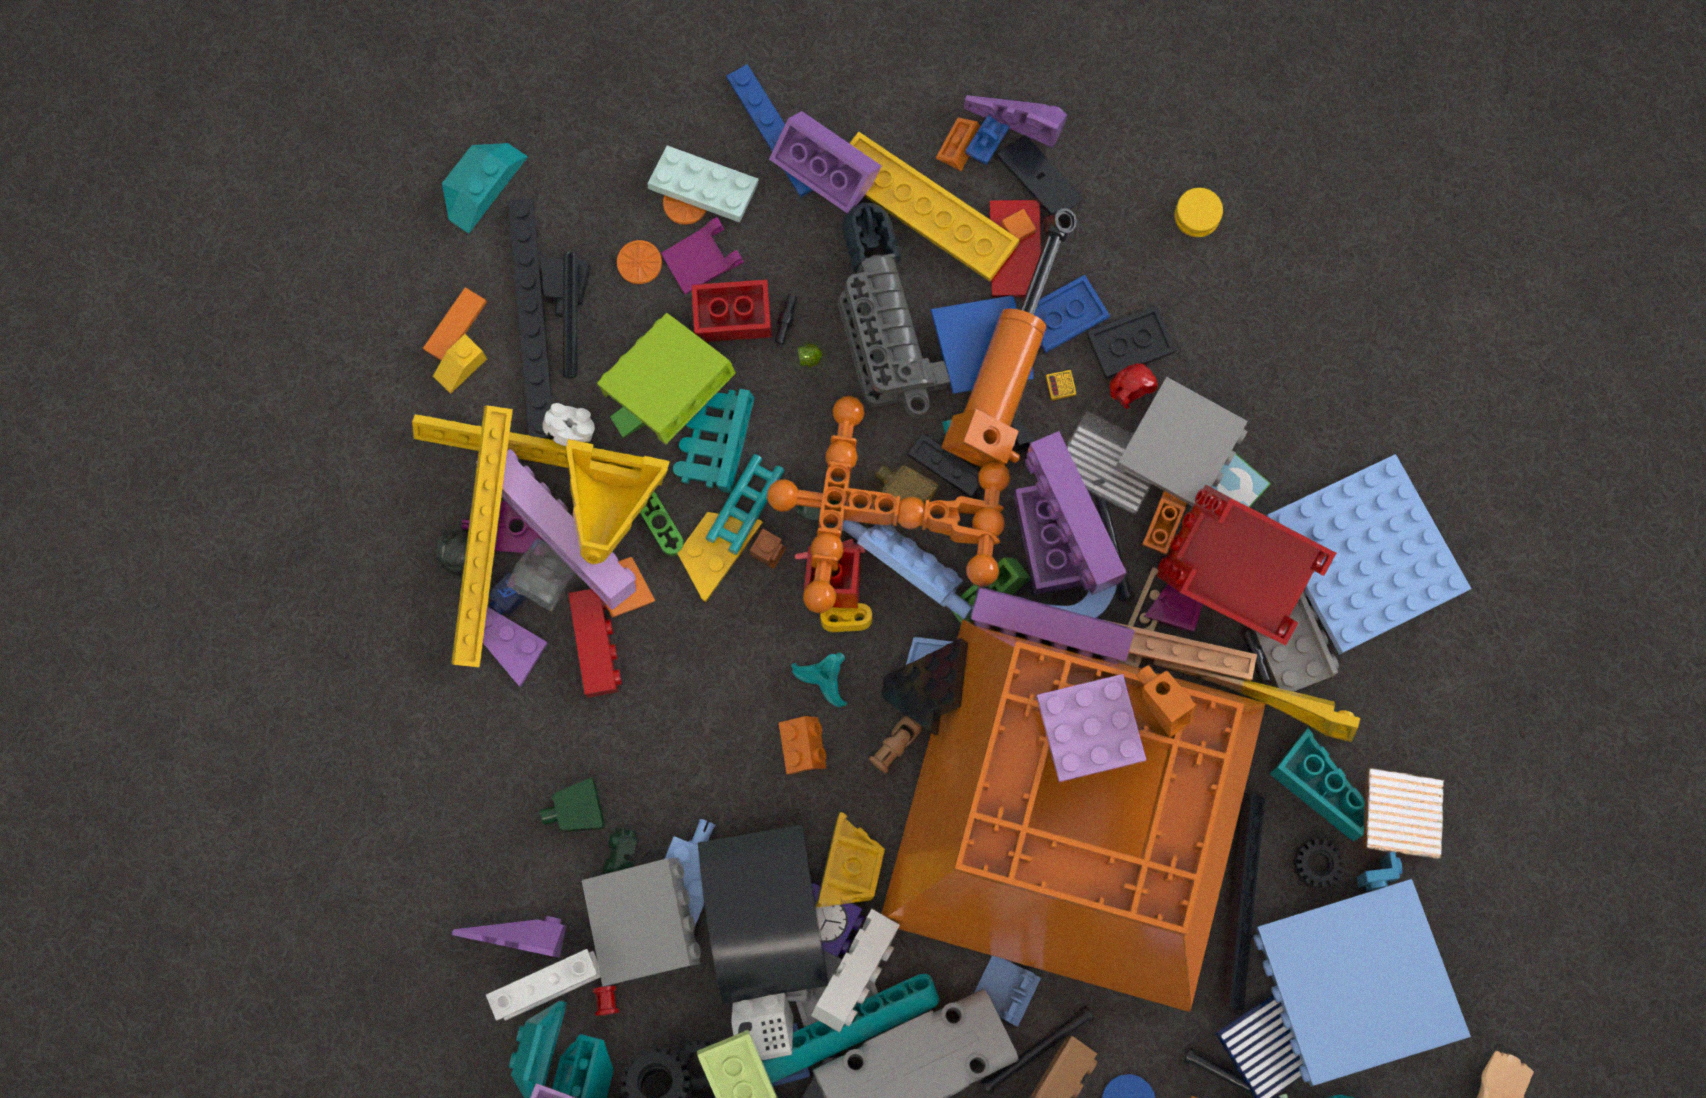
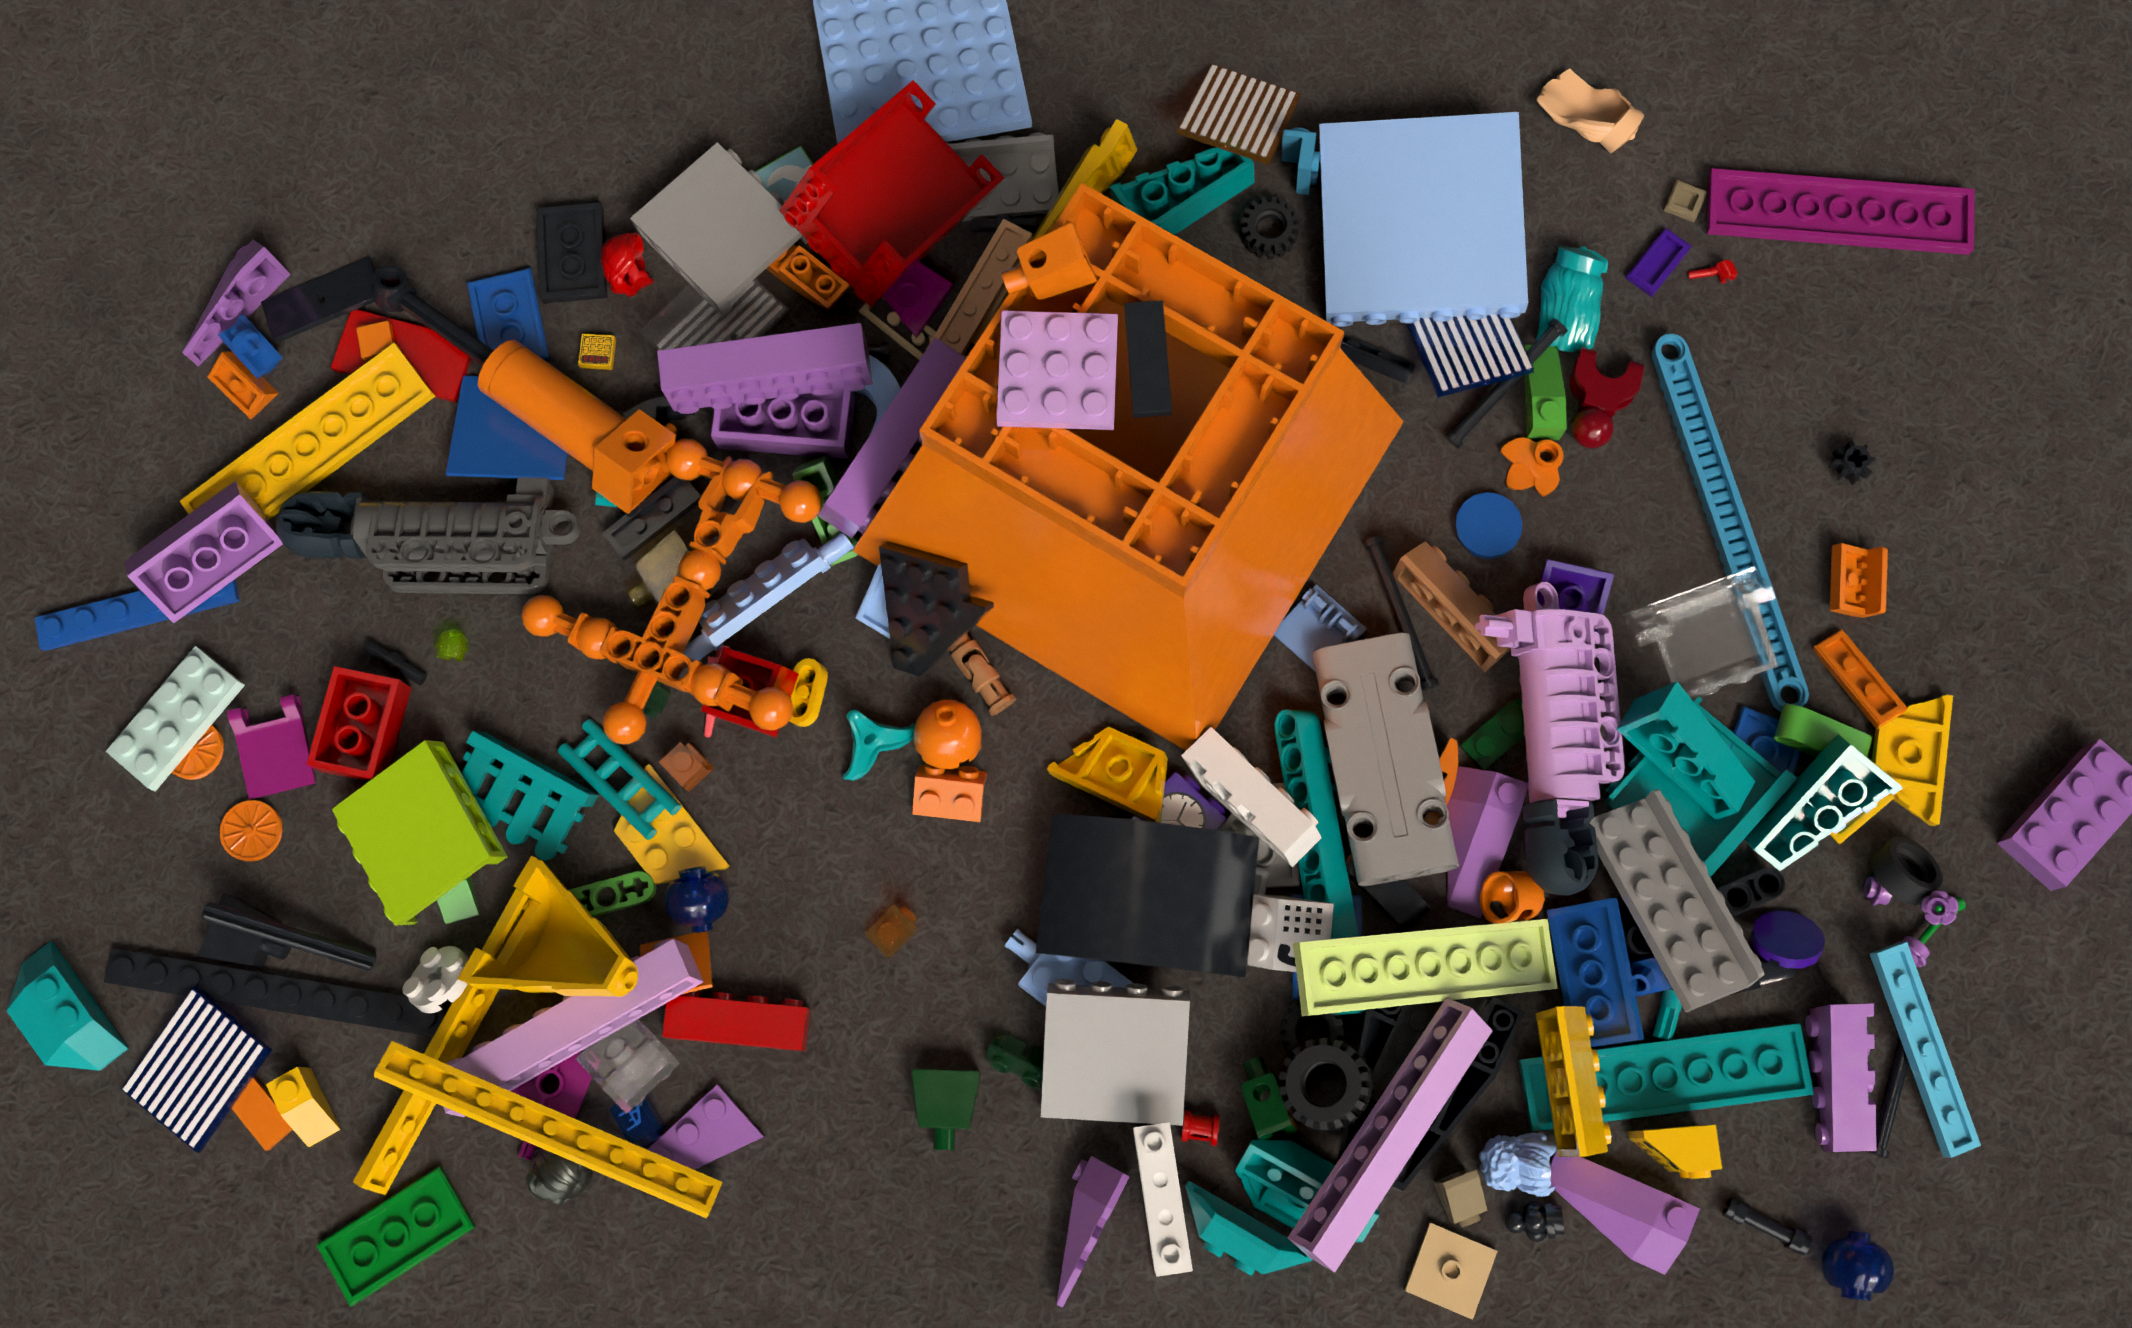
camera: 70 degrees left, 0 degrees up
(388, 455) = (395, 1236): none -> green tile
(465, 284) = (196, 1069): none -> piece
(623, 1046) = (1270, 1116): none -> dark green torso
(673, 586) = (697, 898): none -> clear blue plant
(690, 734) = (893, 930): none -> clear orange bracket
(843, 731) = (947, 734): none -> orange cylinder
(1119, 792) = (1148, 359): none -> black tile
(1198, 212) = (436, 126): yellow head -> none

